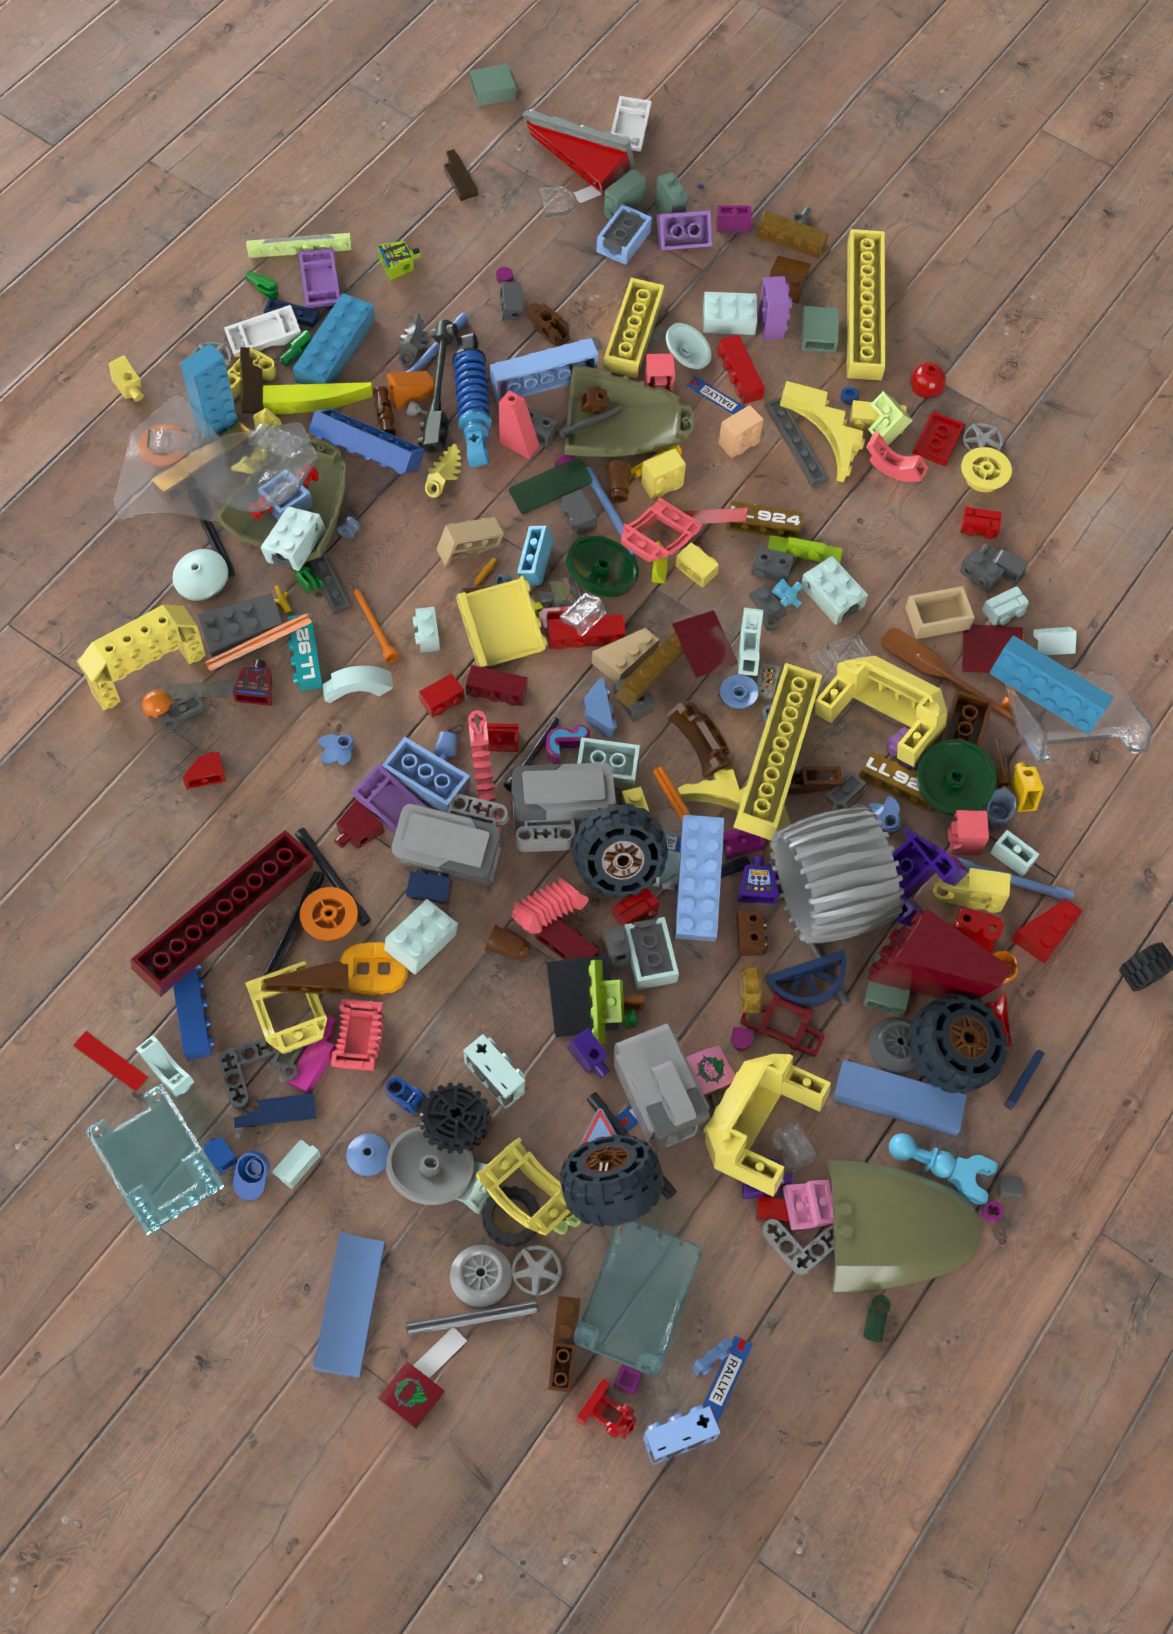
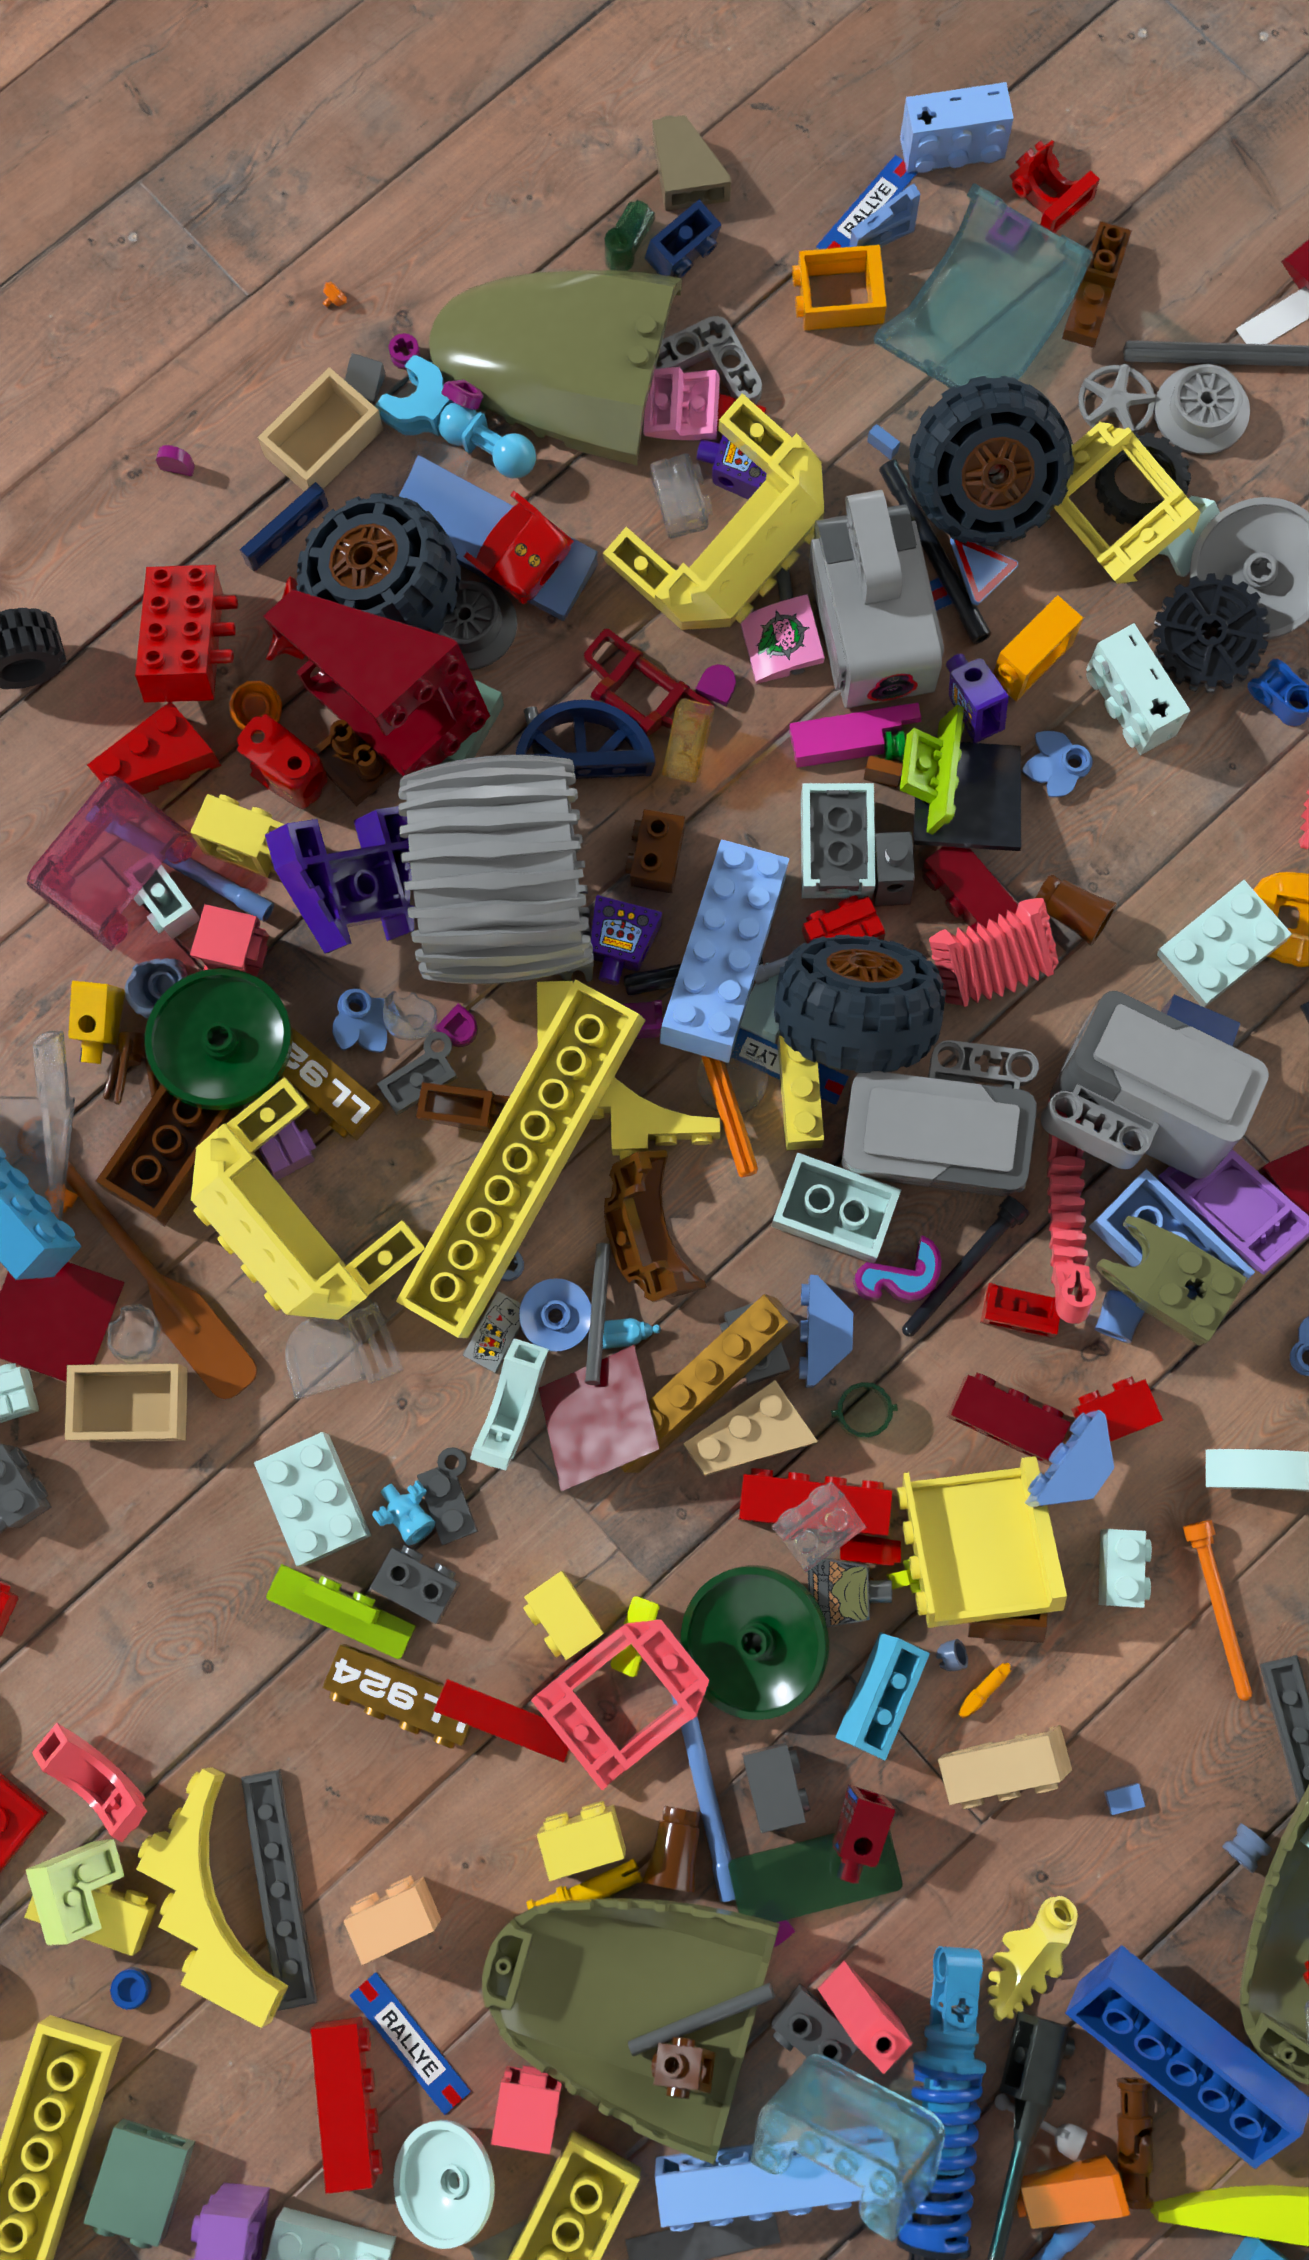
camera: 160 degrees left, 15 degrees up
(409, 540) = (1124, 1799): none -> medium blue piece
(425, 746) = (1161, 1278): none -> olive brick
(462, 653) = (1077, 1466): none -> medium blue slope
(513, 371) = (857, 2133): none -> clear light blue windscreen
(533, 492) = (865, 1816): none -> dark red torso
(534, 1027) = (1052, 763): none -> medium blue plate
(559, 1084) = (1037, 647): none -> light orange window
(570, 688) = (890, 1408): none -> clear green piece
(674, 1015) = (848, 734): none -> dark pink piece
(678, 1210) = (883, 441): none -> medium blue piece
(703, 692) = (626, 1332): none -> medium azure piece
(708, 1314) = (840, 261): none -> light orange window
(718, 695) = (597, 1315): none -> dark grey bar
(839, 1315) = (683, 241): none -> dark blue brick
(853, 1378) = (687, 165): none -> dark tan slope
(880, 1080) = (522, 550): none -> red piece
(945, 1174) = (463, 393): none -> magenta tile
(947, 644) = (135, 1334): none -> clear hair
(1023, 1138) = (321, 432): none -> tan piece
(1048, 863) = (107, 859): none -> clear pink windscreen
(1048, 1241) = (333, 295): none -> orange rock
(1059, 994) = (182, 633): none -> red piece
(1104, 1109) = (175, 460): none -> magenta tile

